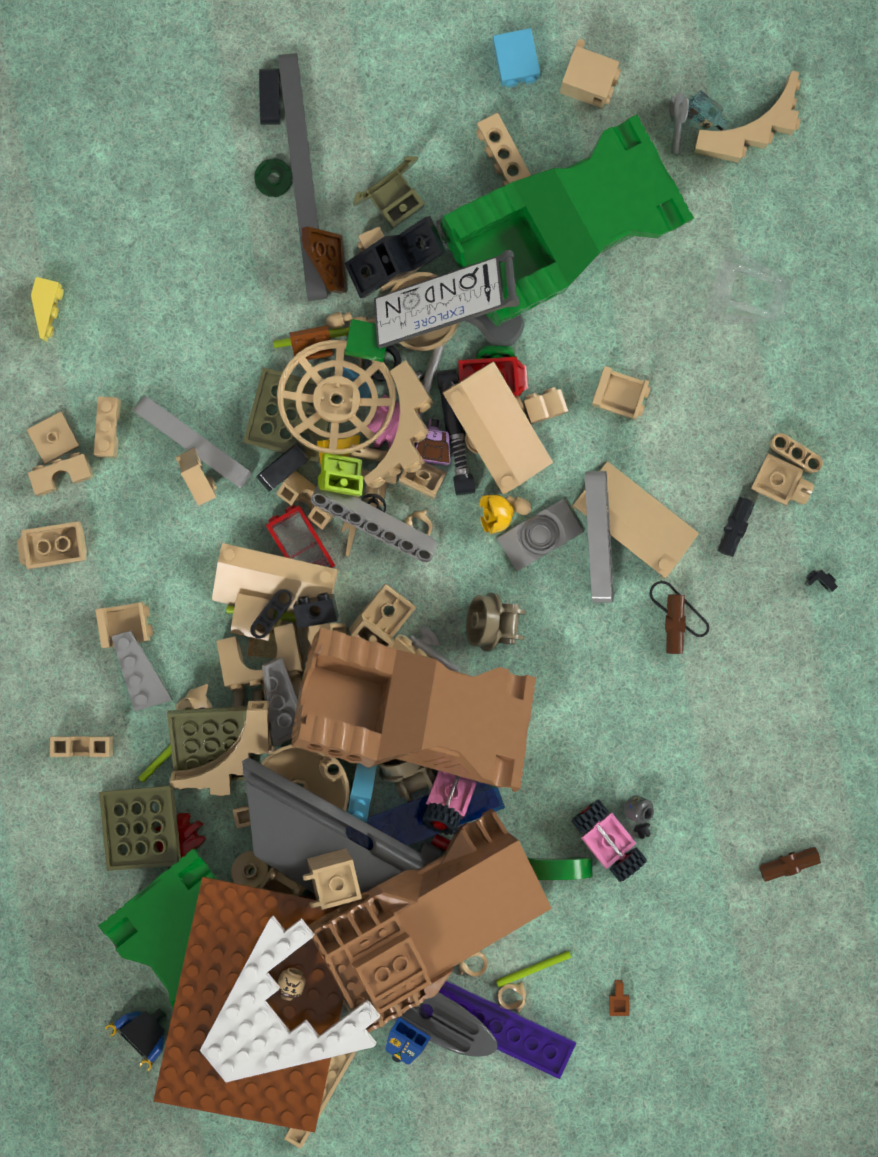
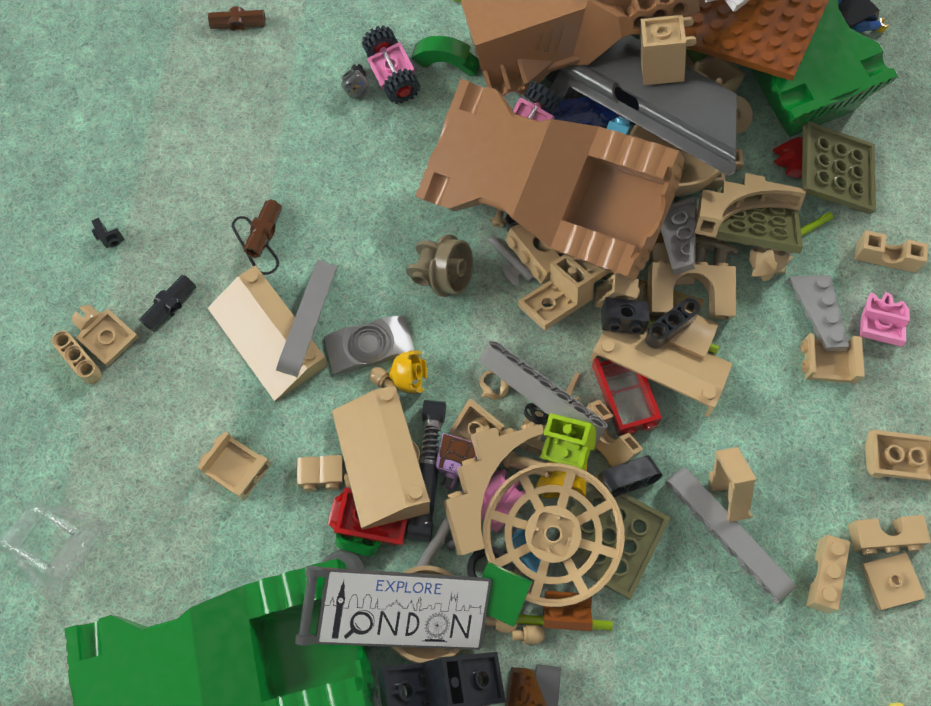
camera: 160 degrees left, 20 degrees down
(80, 675) = (885, 320): none -> bright pink plate

